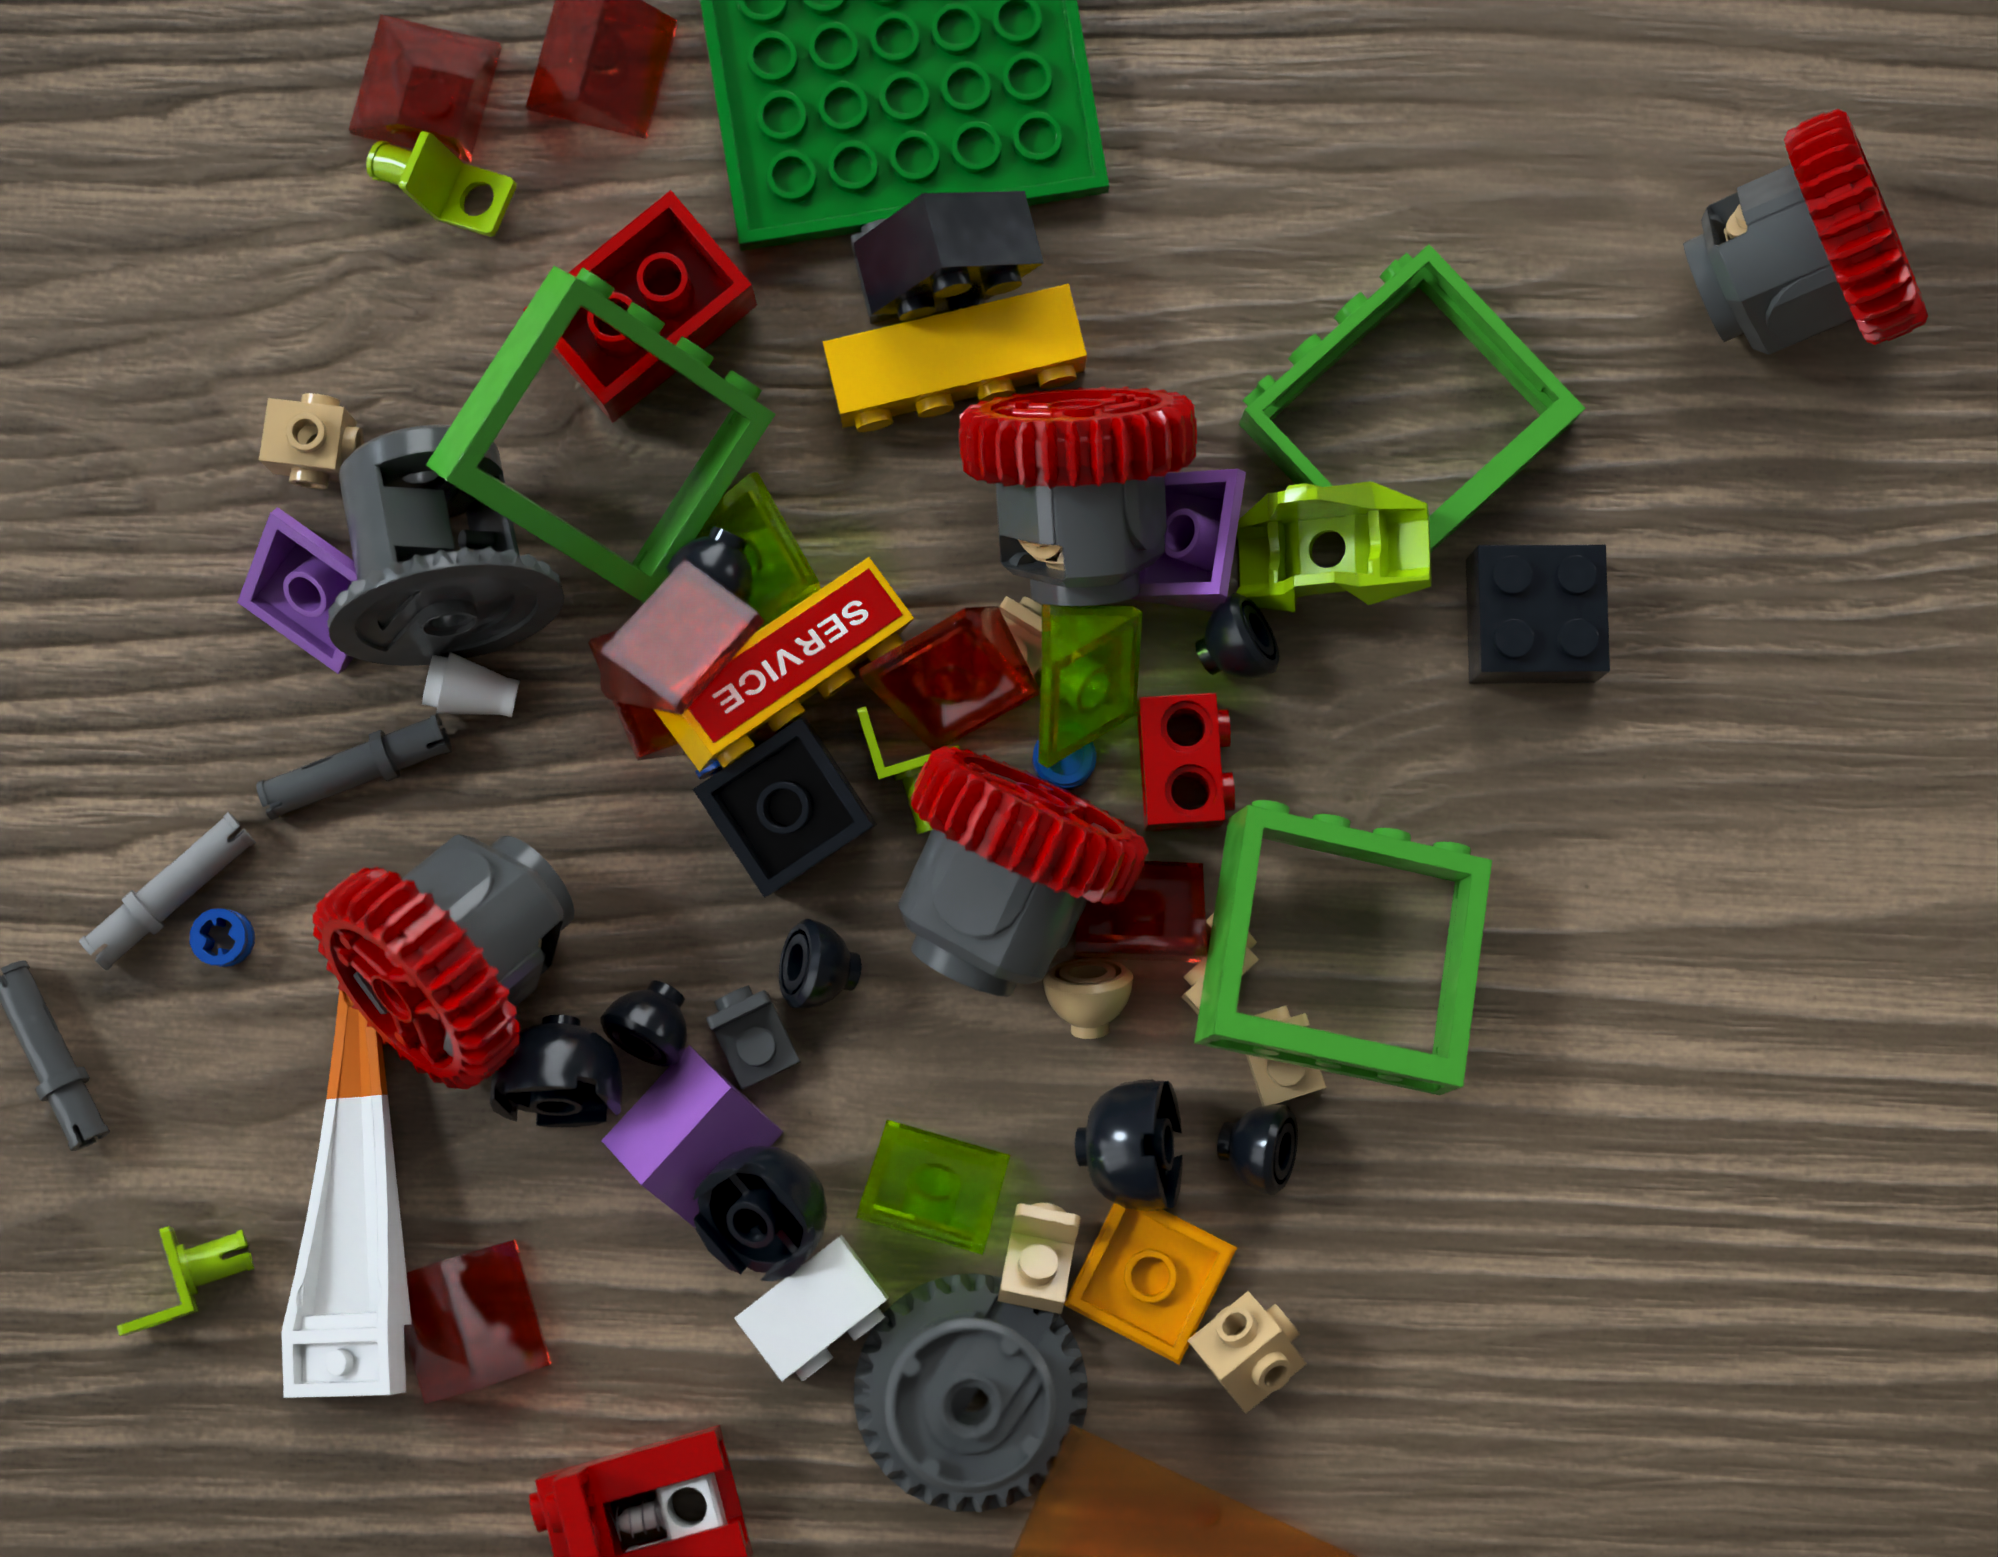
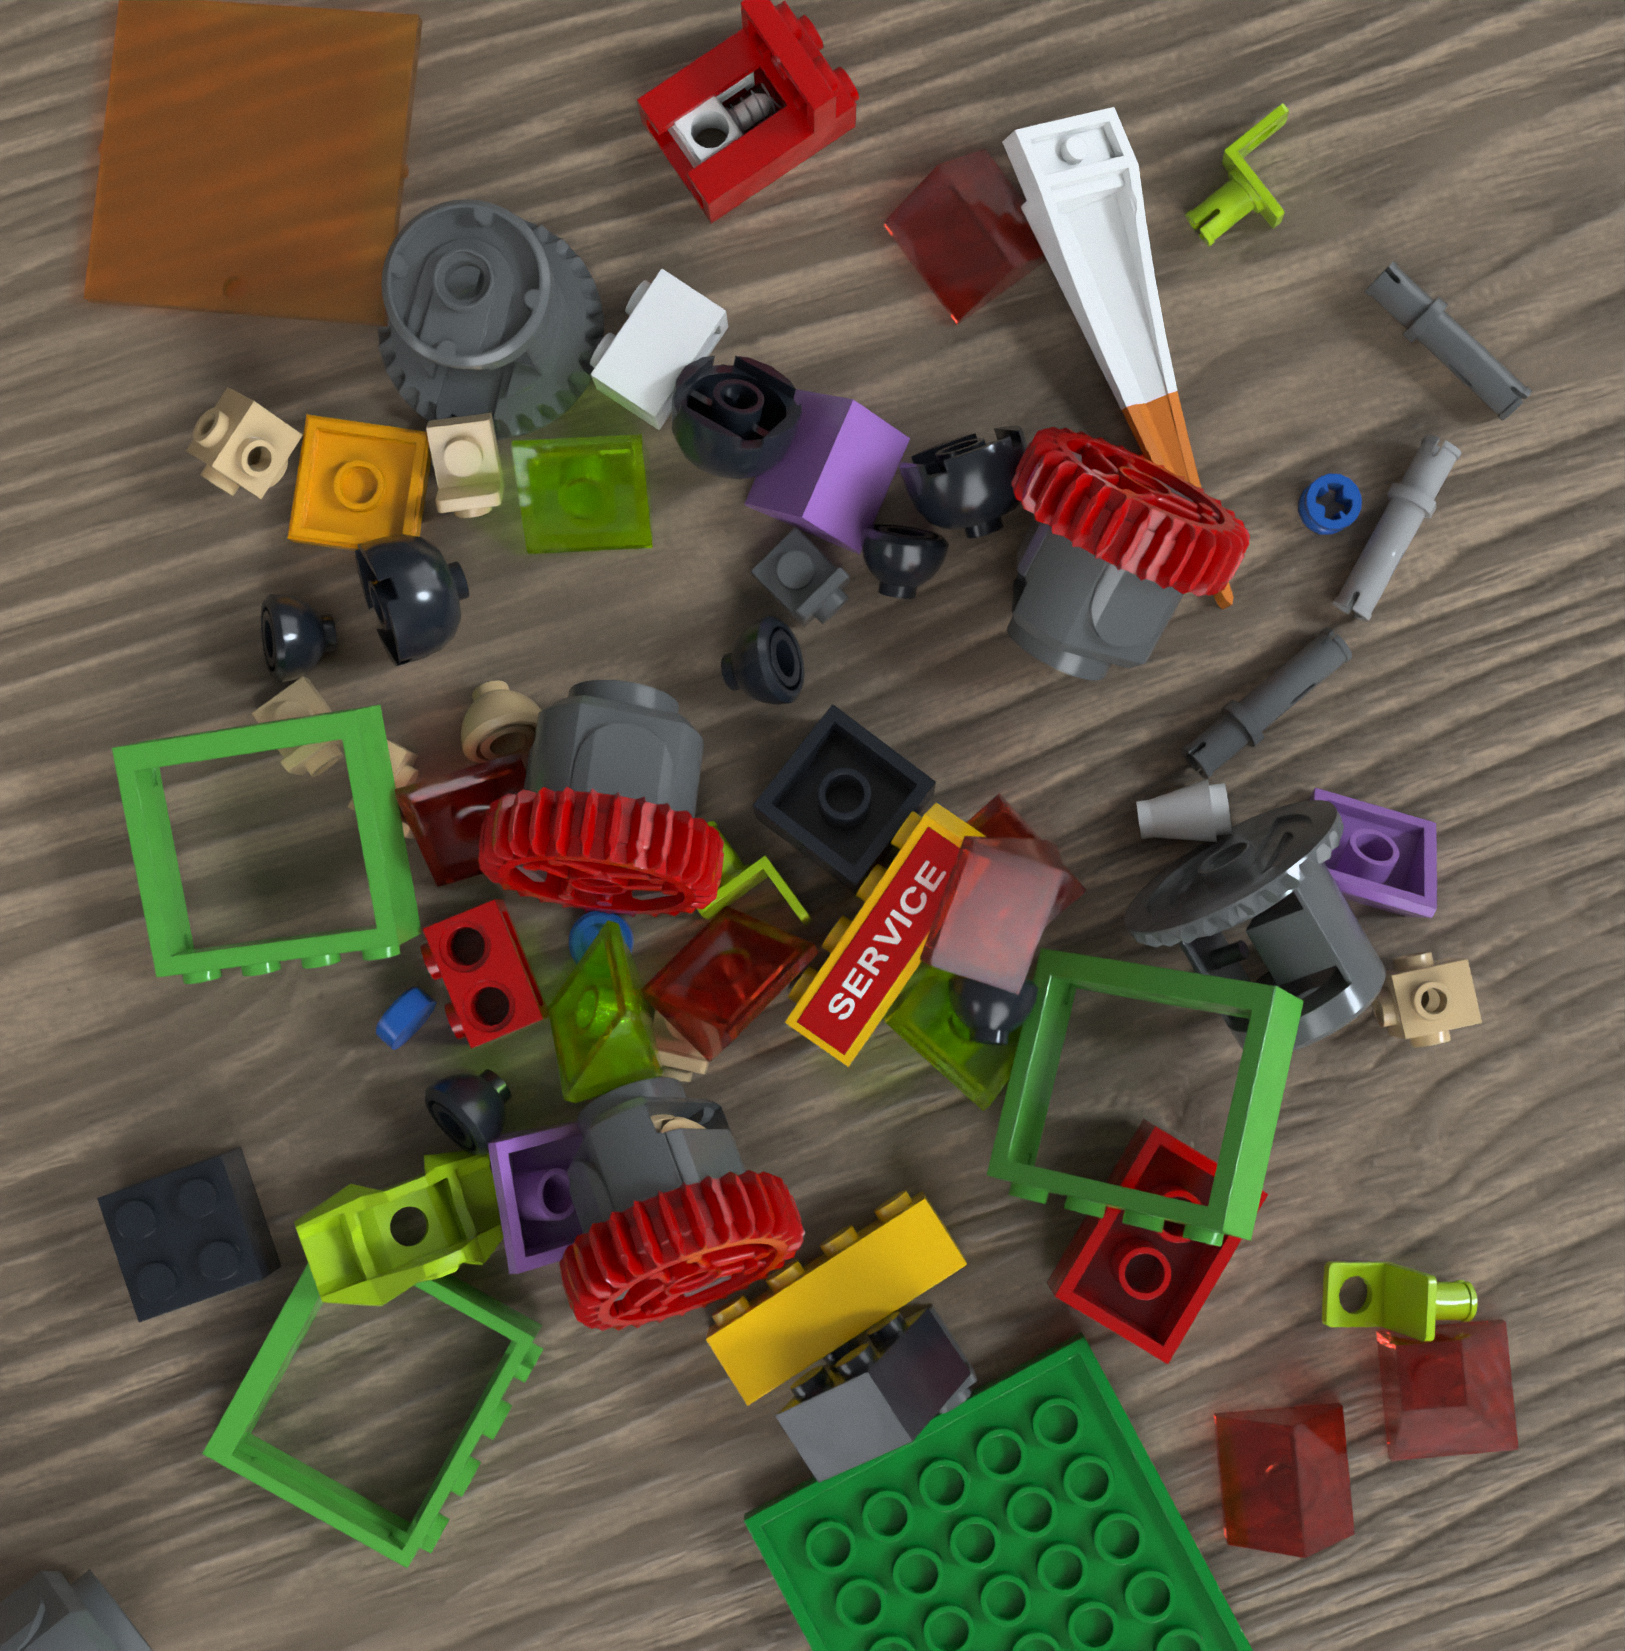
camera: 165 degrees right, 5 degrees up
(1271, 747) = (405, 1017): none -> blue tile

